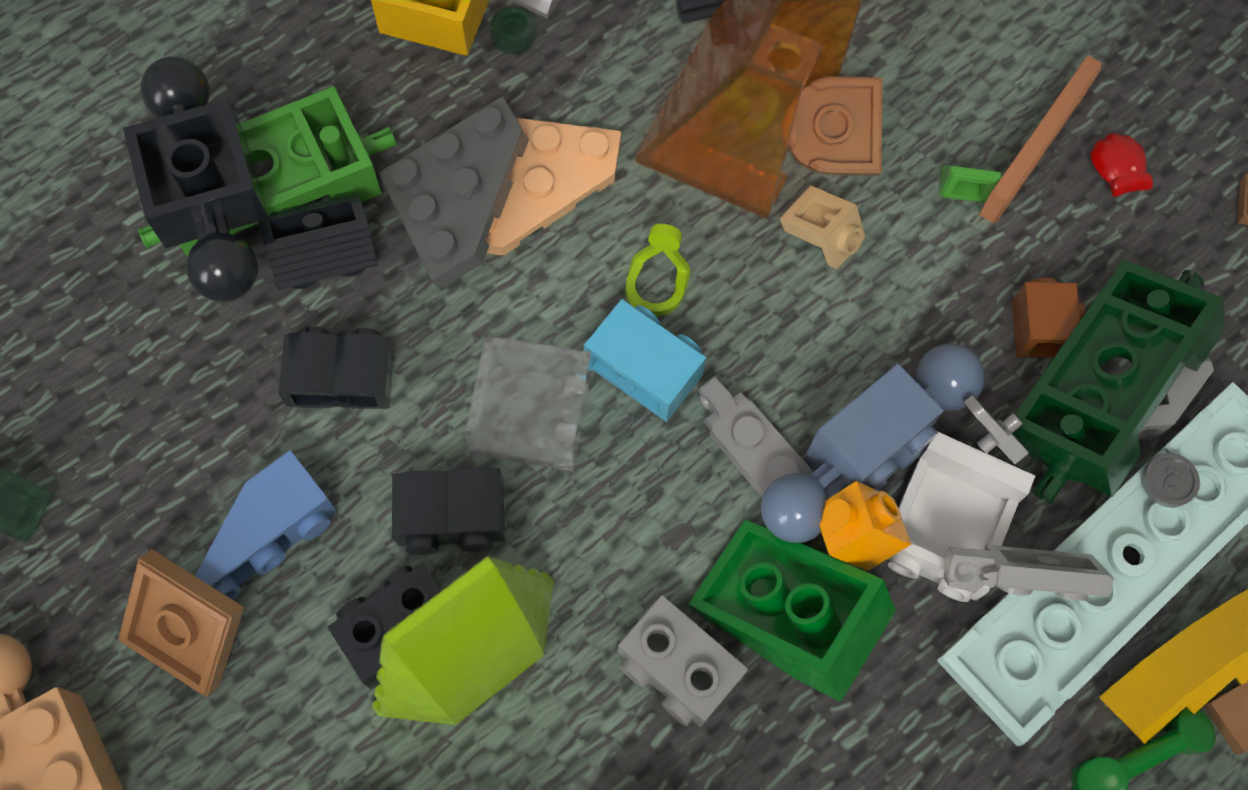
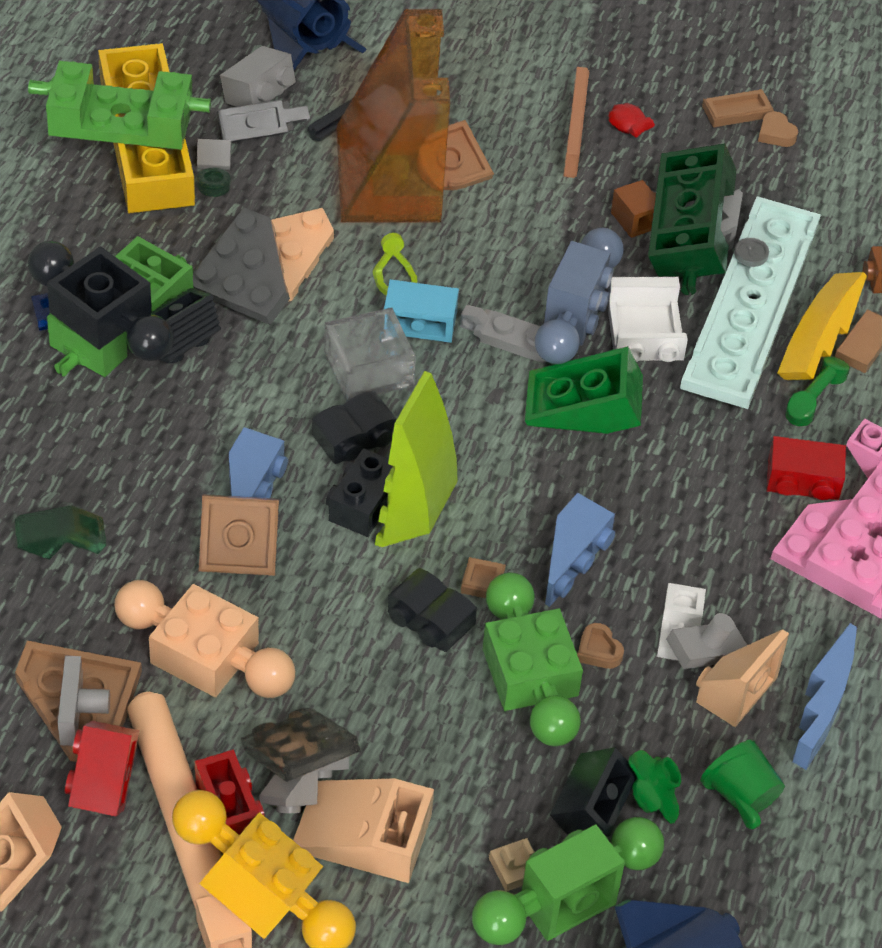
camera: 30 degrees left, 20 degrees down
(336, 370) = (236, 388): black brick -> none
(679, 663) = (541, 444): light grey brick -> none
(827, 223) = (478, 207): tan bracket -> none
(863, 526) = (600, 328): light orange brick -> none
(967, 183) = (547, 158): bright green slope -> none
(999, 432) = (646, 262): light grey piece -> none
(1025, 570) = (698, 317): light grey hinge -> none

